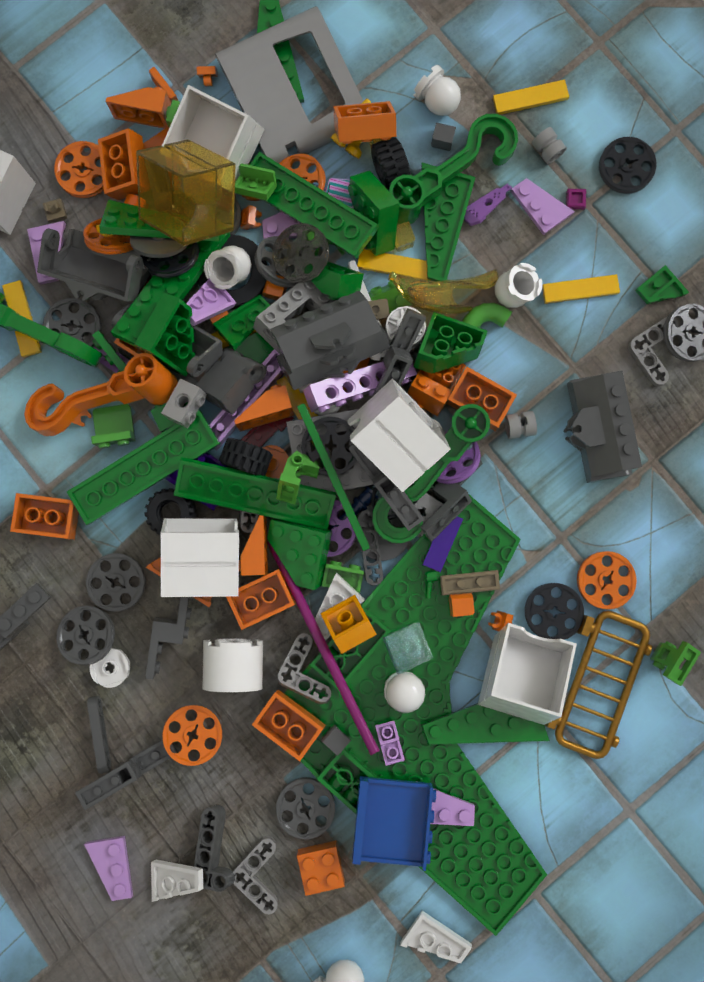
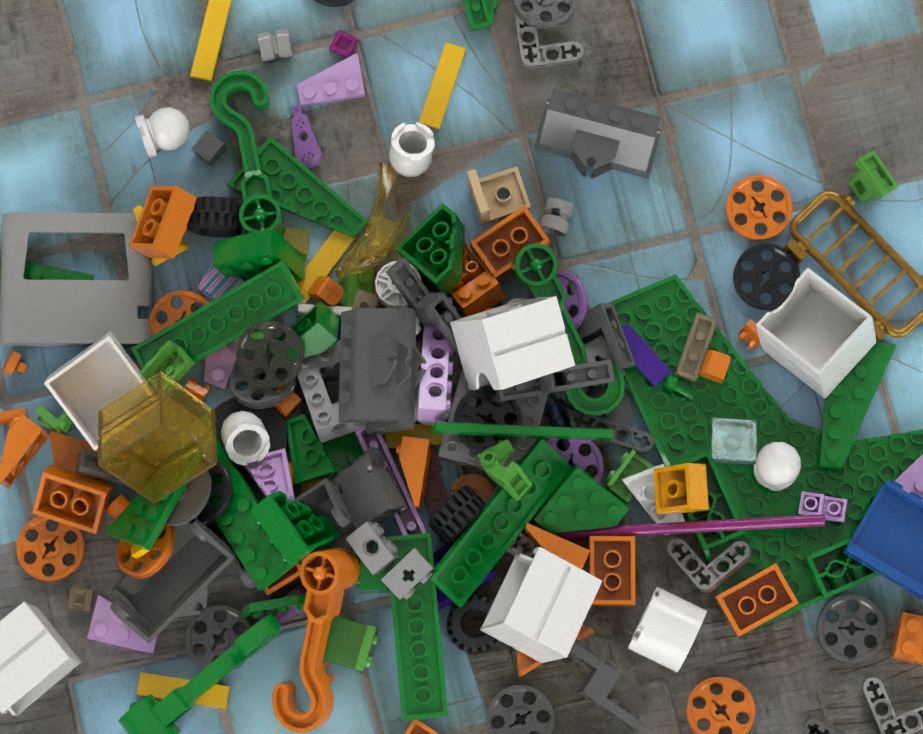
camera: 60 degrees left, 5 degrees down
(166, 433) = (412, 561): none -> light grey brick
(335, 739) = (793, 559): dark grey piece -> none
(374, 276) = (326, 291): none -> orange piece
(487, 312) = (421, 193): bright green cylinder -> none
(513, 360) = (485, 196): none -> tan bracket

